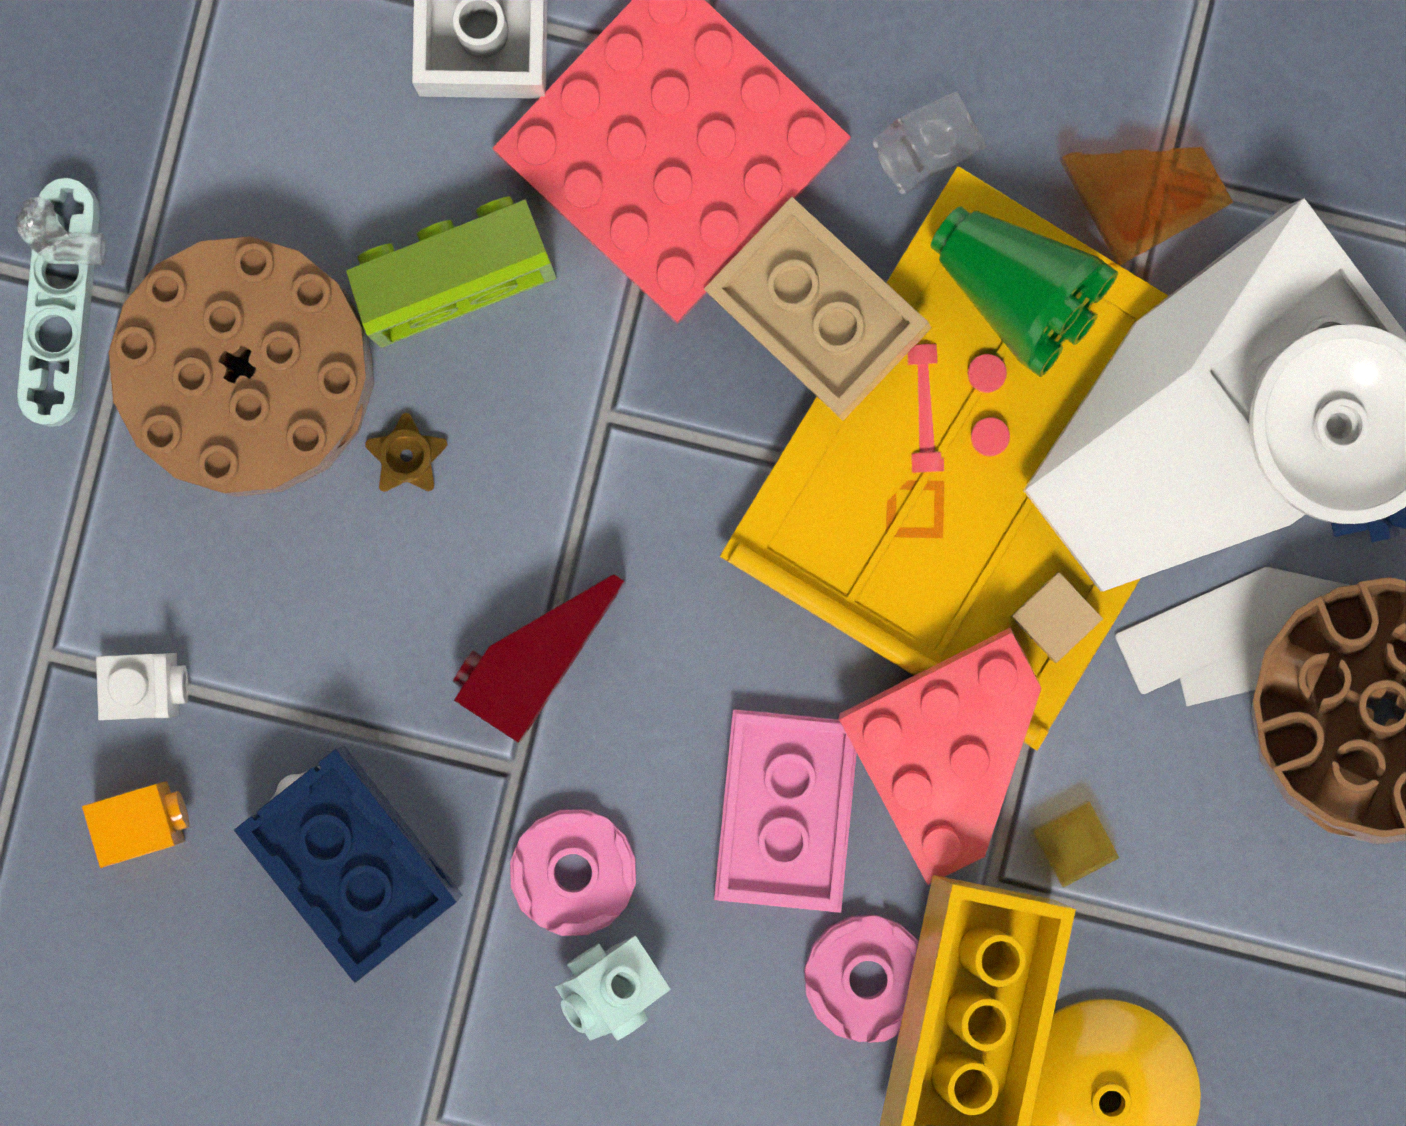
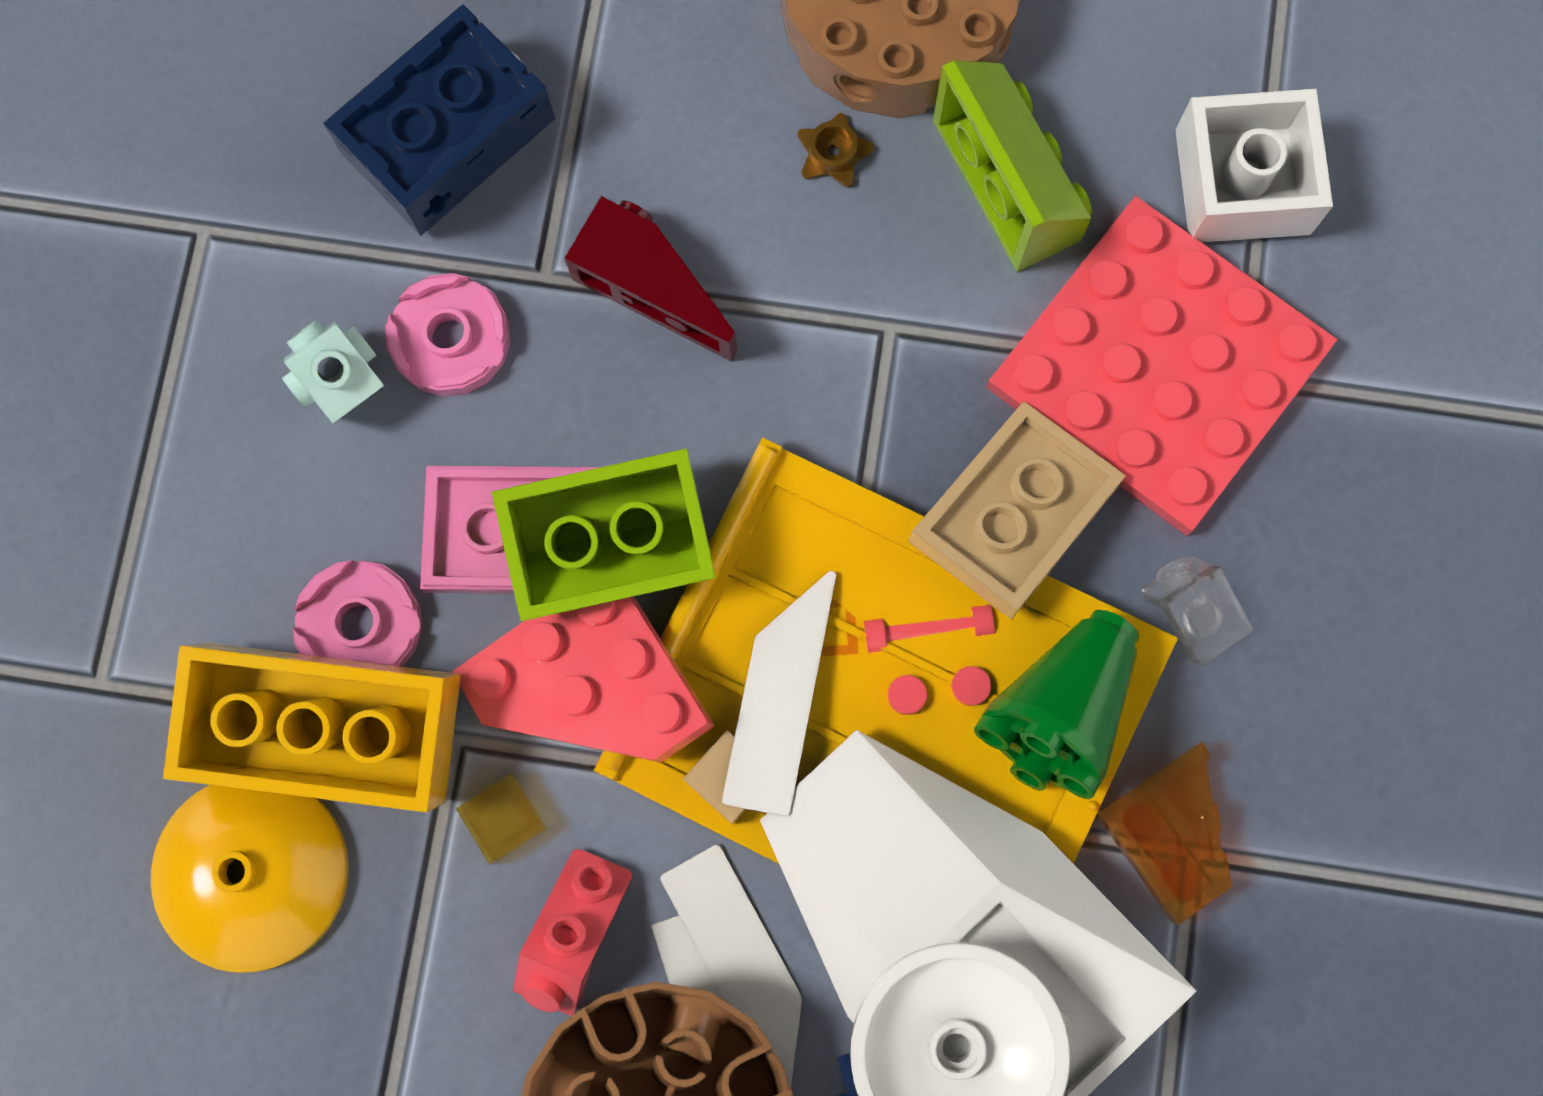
camera: 90 degrees right, 10 degrees down
(816, 720) = (603, 534): none -> lime slope
(990, 563) = (778, 704): none -> white sticker
(1190, 780) = (569, 933): none -> coral bracket

